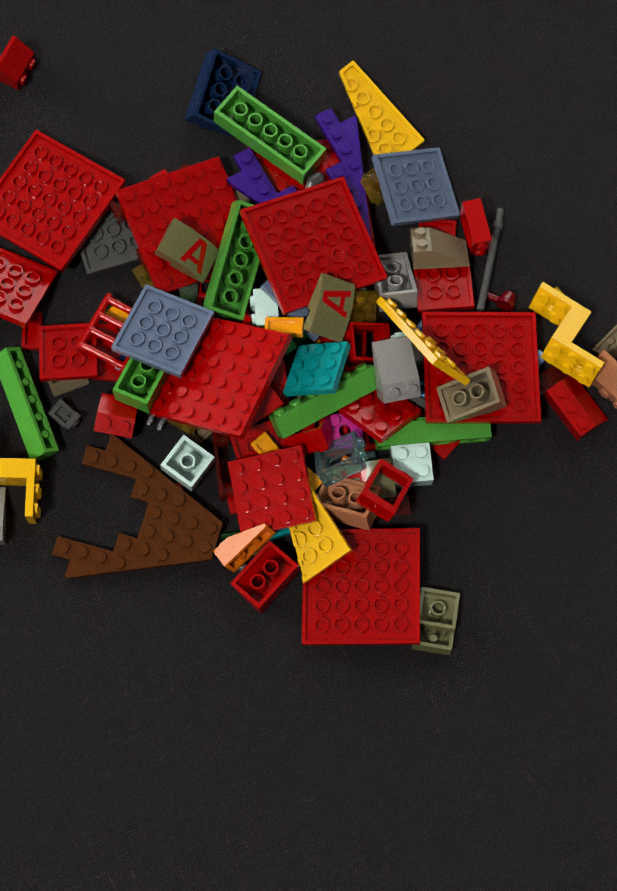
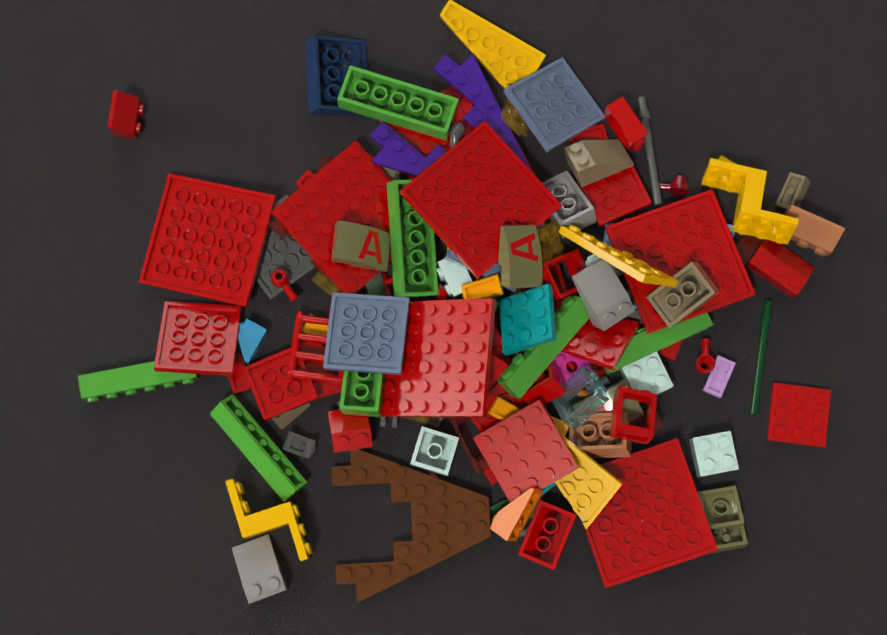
camera: 15 degrees left, 5 degrees up
(55, 304) = (250, 339): none -> dark azure slope
(104, 262) = (283, 283): none -> red bar
(449, 557) = (713, 454): none -> light aqua brick
(473, 467) = (705, 359): none -> red bar
(480, 488) = (719, 377): none -> lavender plate
(543, 452) = (765, 321): none -> dark green bar
(544, 550) = (798, 415): none -> red plate

